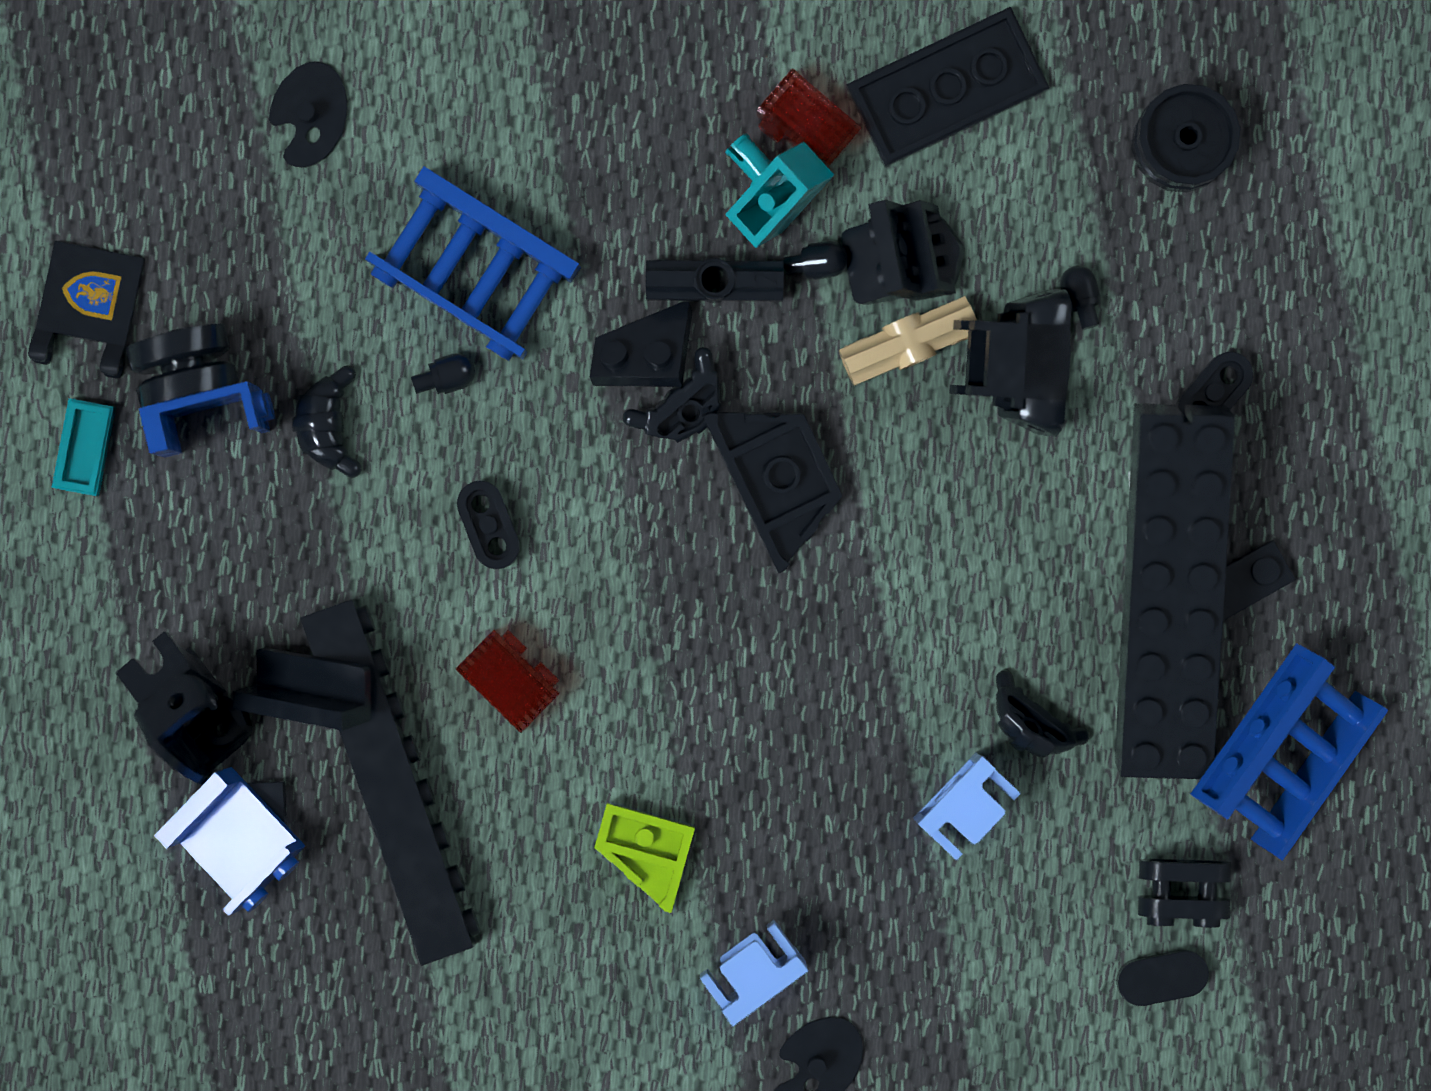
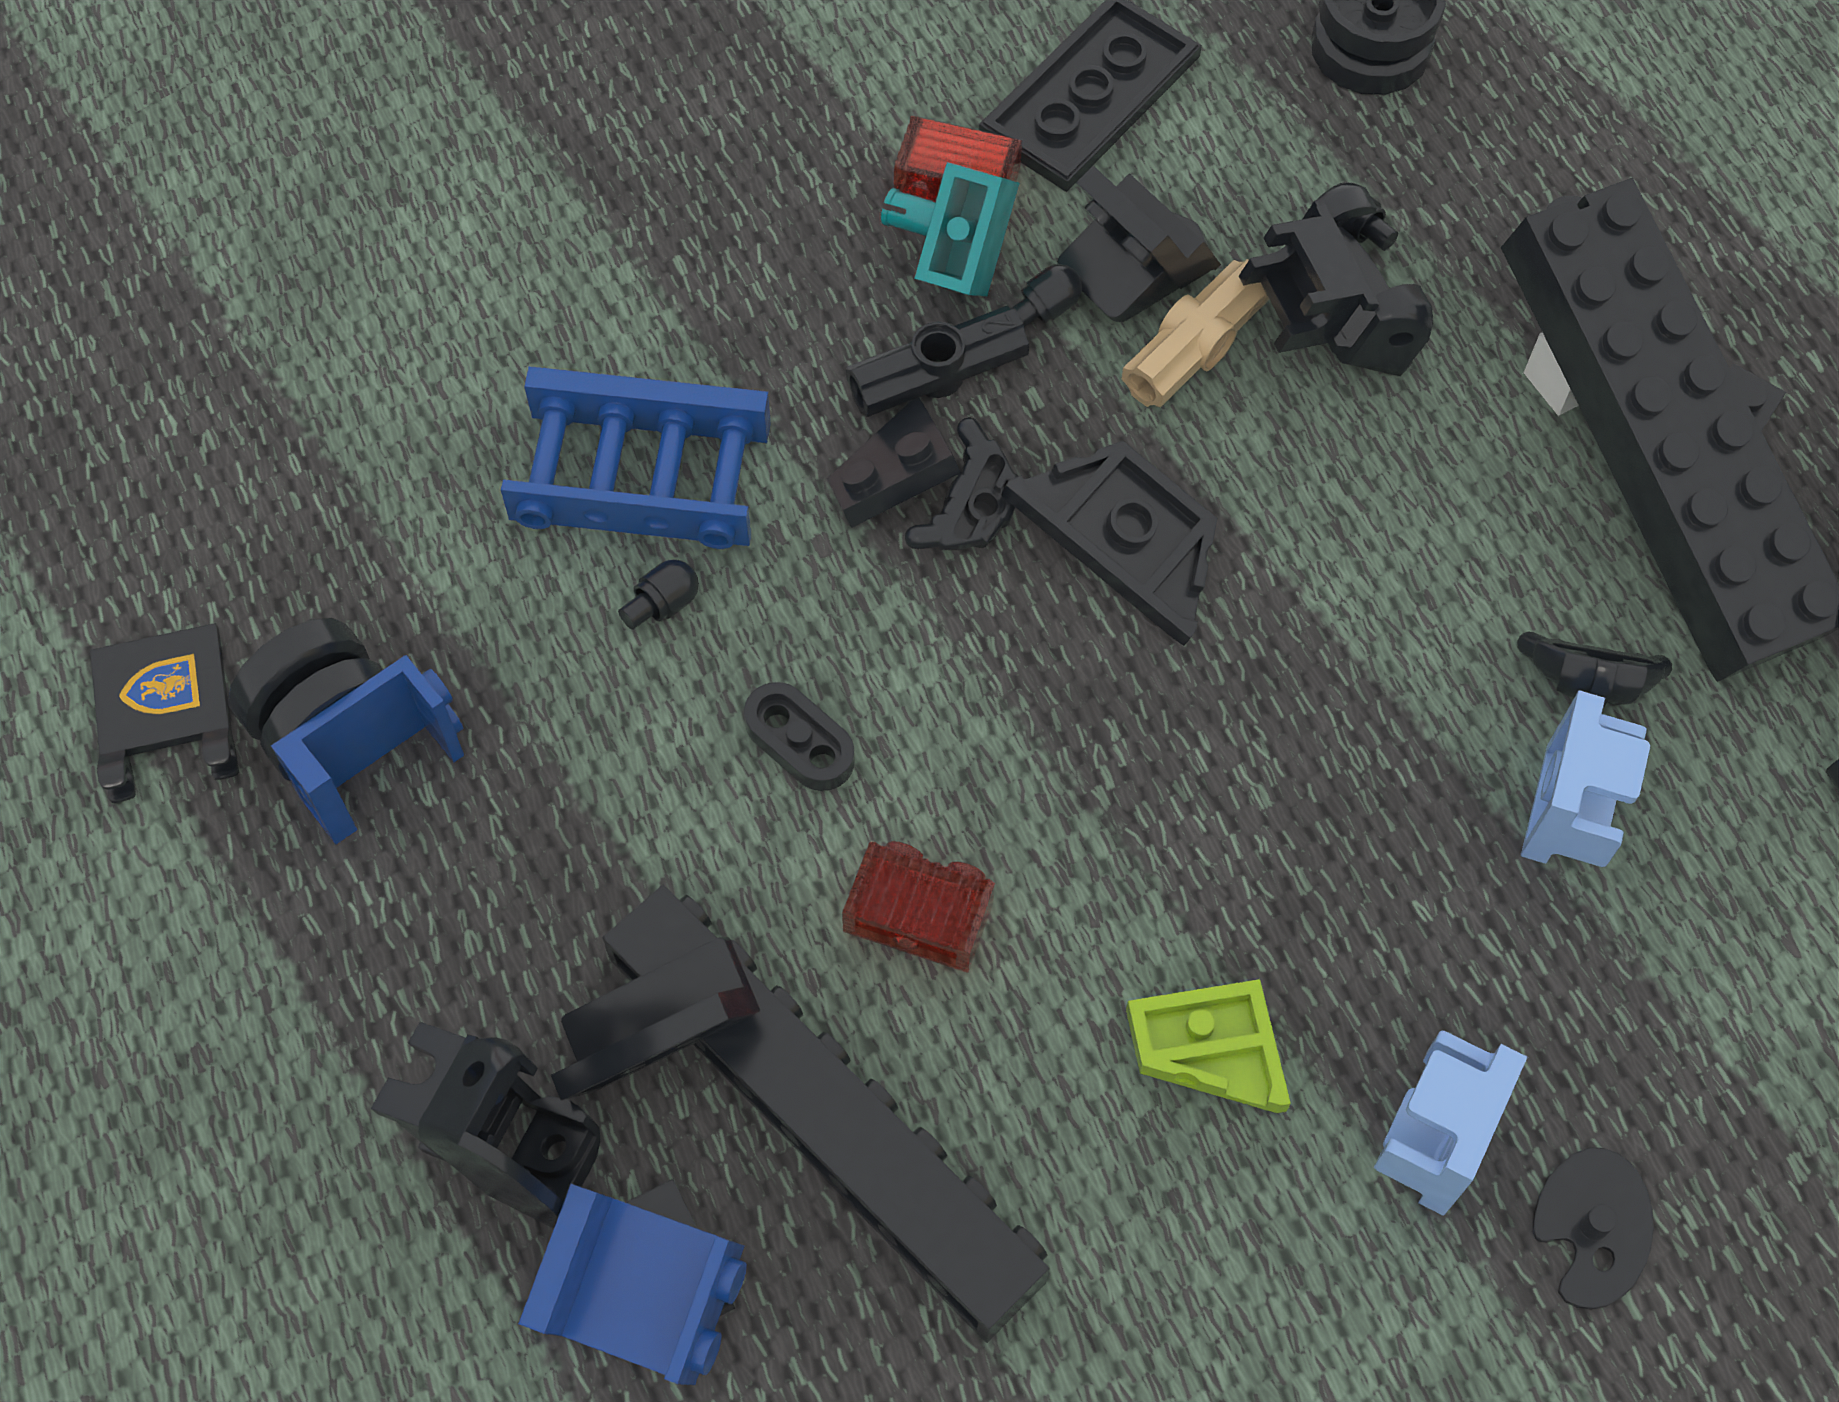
camera: 30 degrees left, 25 degrees down
(83, 447) = (218, 875): teal tile -> none
(310, 99) = (357, 379): black piece -> none
(321, 423) = (527, 715): black piece -> none

